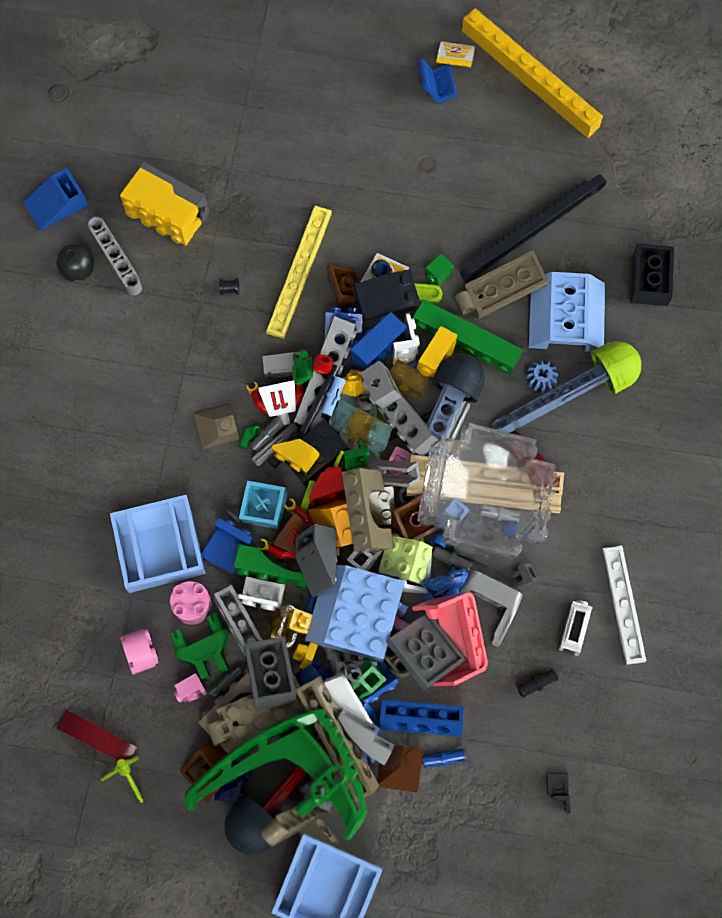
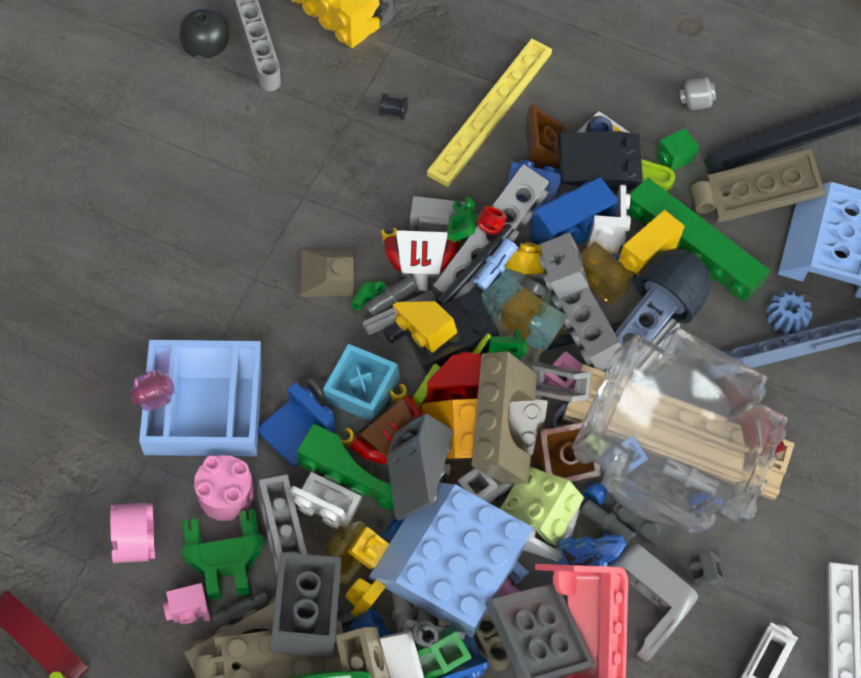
camera: 10 degrees right, 10 degrees down
(124, 551) = (152, 390): none -> clear pink head
(444, 221) = (698, 93): none -> light grey head

